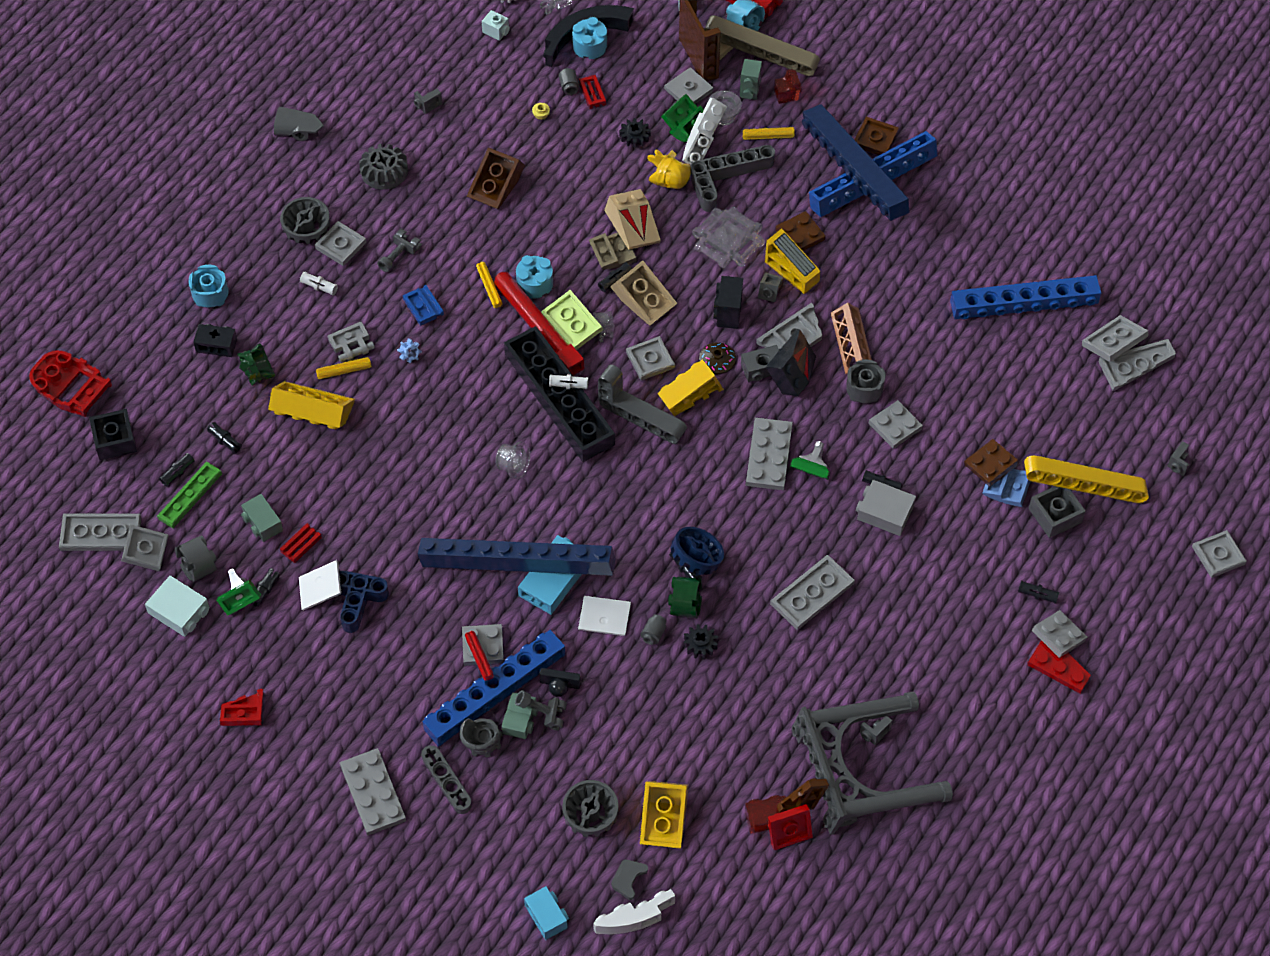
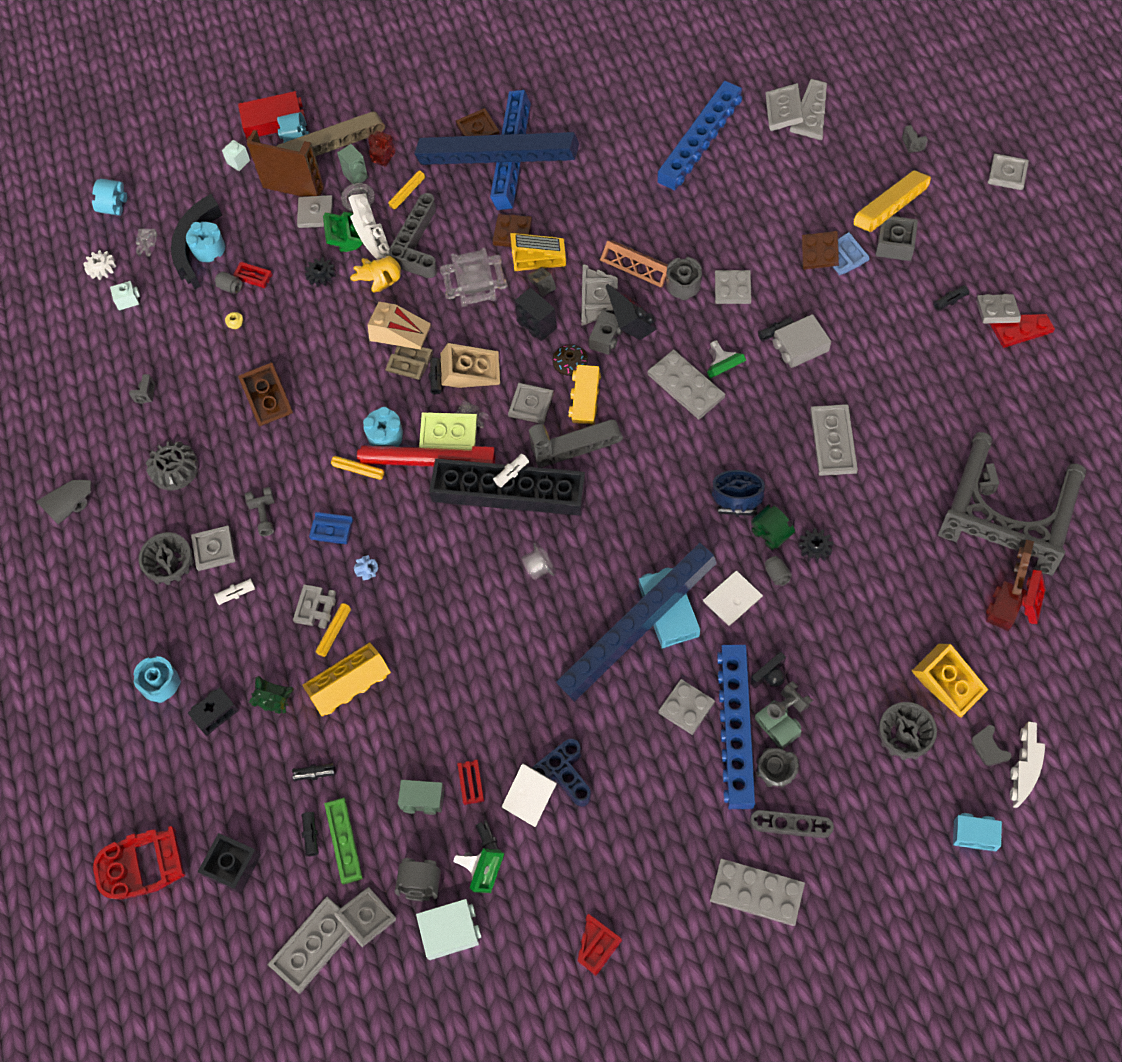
camera: 45 degrees left, 5 degrees up
(479, 655) = (704, 715): red axle -> none

